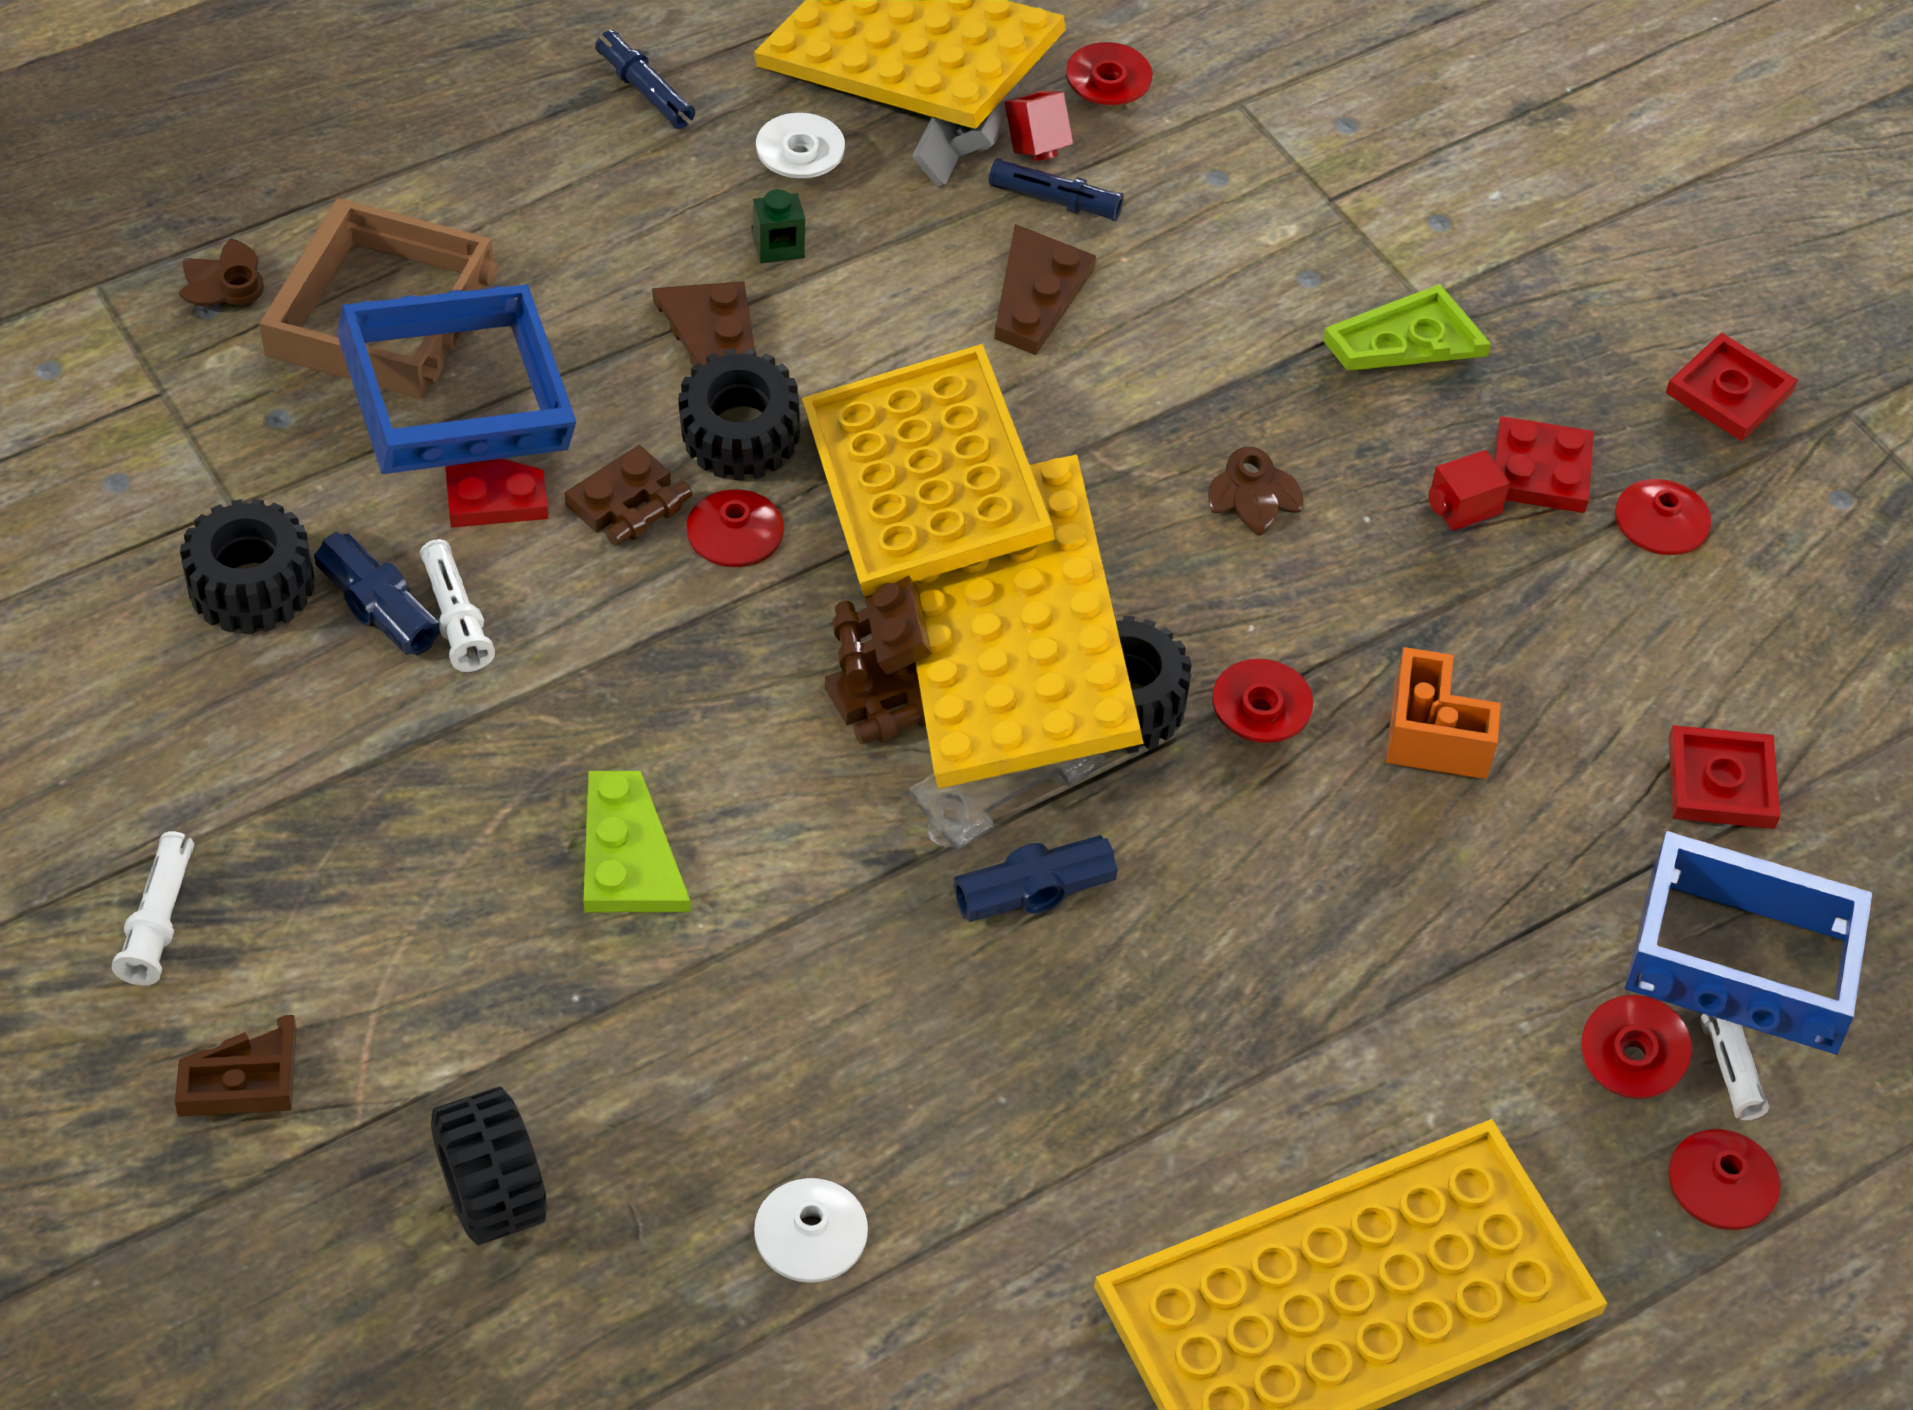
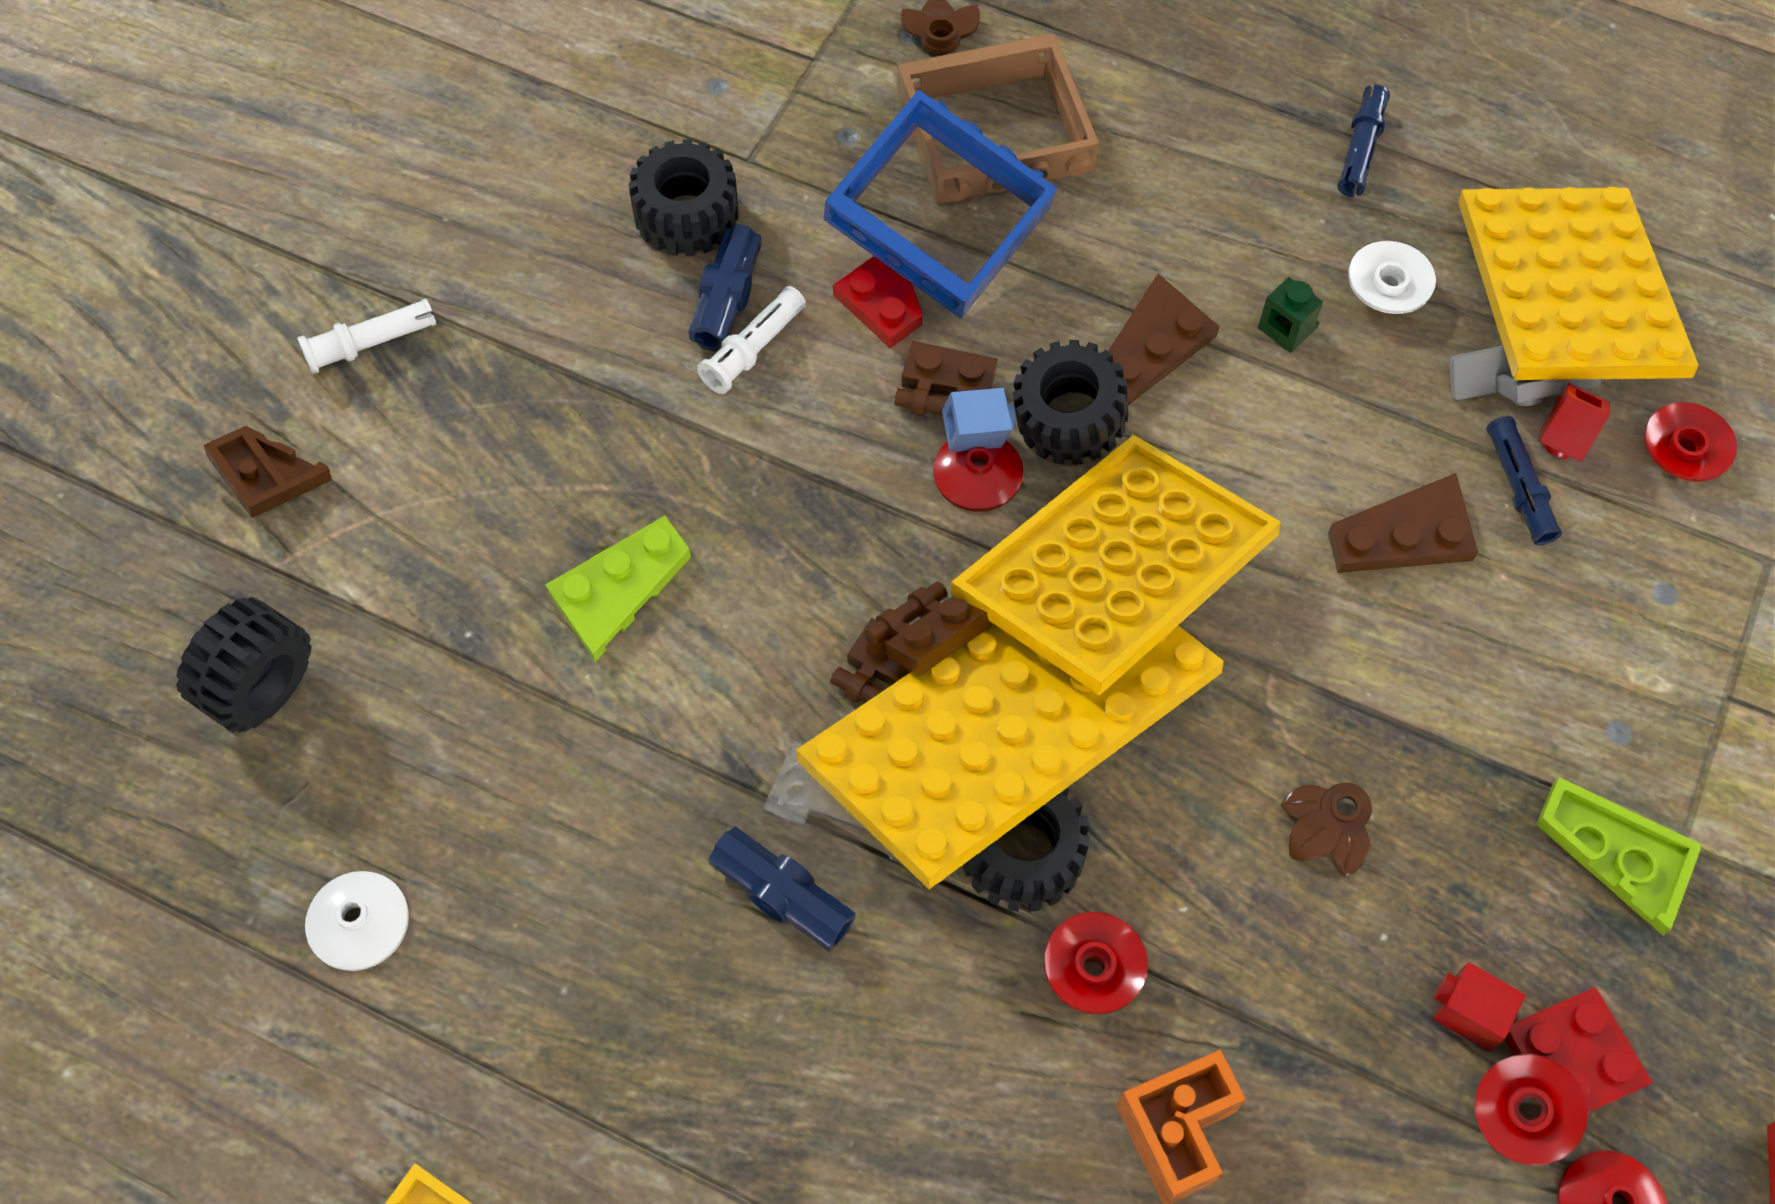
camera: 60 degrees right, 10 degrees up
(702, 484) = (978, 419): none -> medium blue brick
(1577, 491) = (1539, 1139): none -> red dish

